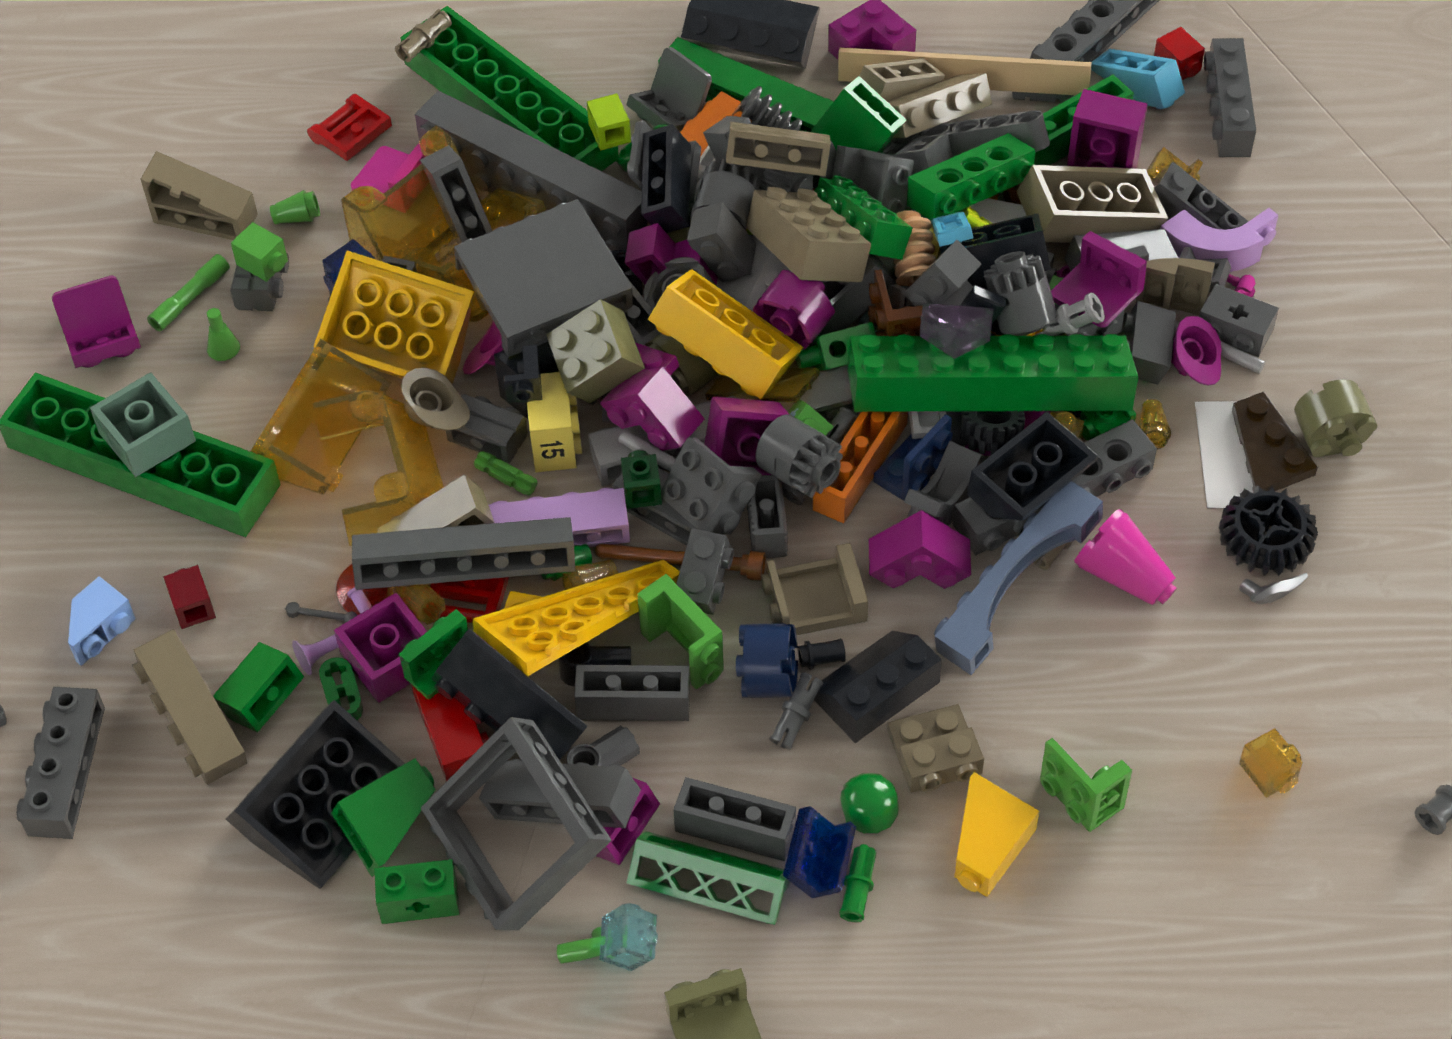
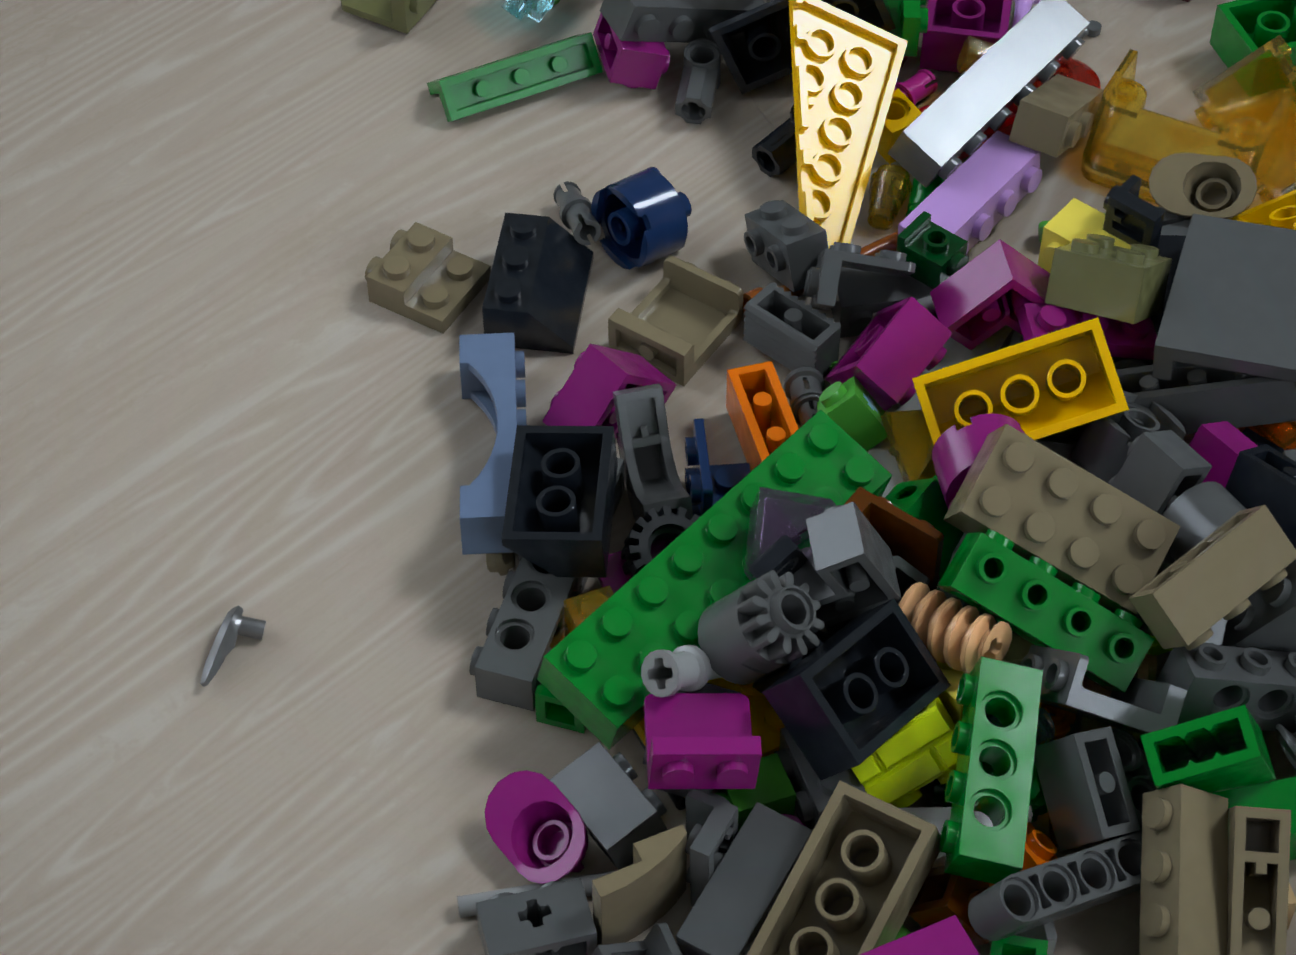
camera: 135 degrees right, 5 degrees down
(632, 692) = (726, 126): dark grey brick -> none
(668, 608) = (731, 185): bright green panel -> none
(734, 818) = (531, 101): dark grey brick -> none
(799, 455) = (800, 339): dark grey gear -> none
(818, 853) = (440, 130): clear blue bracket -> none
(821, 653) = (619, 272): black pin -> none
(858, 884) = (386, 144): green axle -> none
(869, 802) = (442, 202): green hair -> none
(951, 228) = (920, 646): medium azure plate -> none
(991, 834) = (310, 241): yellow slope -> none
(1085, 799) = (252, 298): bright green bracket -> none
(1127, 560) = (400, 538): dark pink cone -> none
(1154, 423) = (514, 724): clear yellow cone -> none
(1221, 453) = (403, 780): white sticker -> none
(1269, 445) = (366, 809): dark brown wing -> none
(1271, 763) = (92, 462): clear yellow brick -> none
(1284, 544) = (253, 705): black gear -> none
(1335, 419) = (299, 854): olive brick -> none

